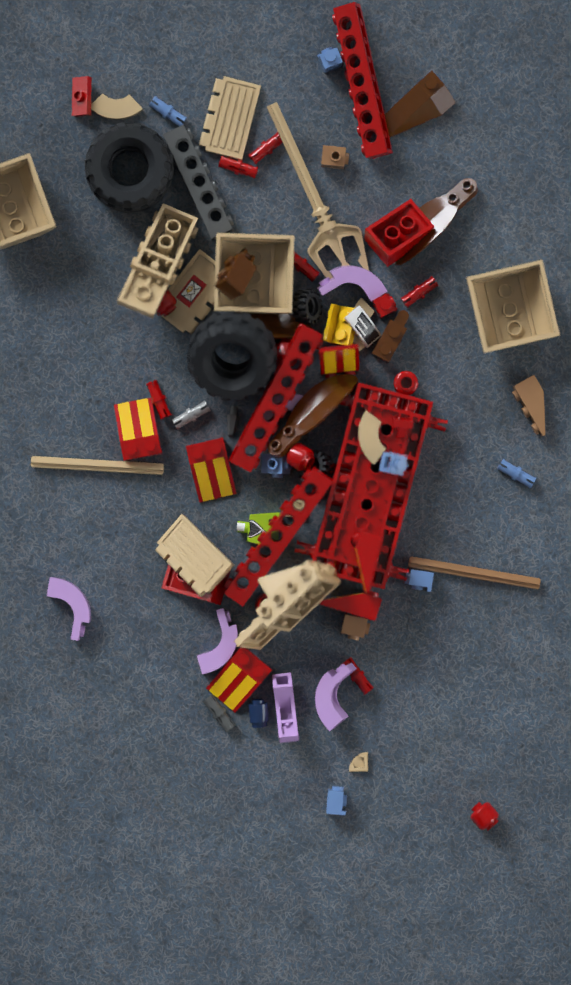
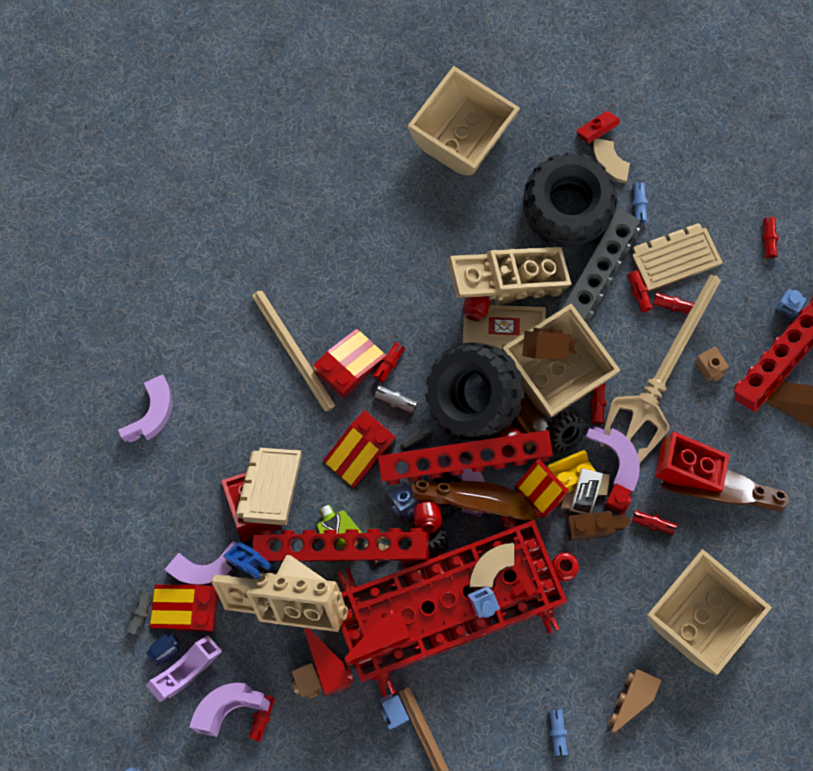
camera: 60 degrees right, 15 degrees down
(239, 611) = (246, 559): none -> blue hinge
(267, 32) = (770, 237): none -> red pin

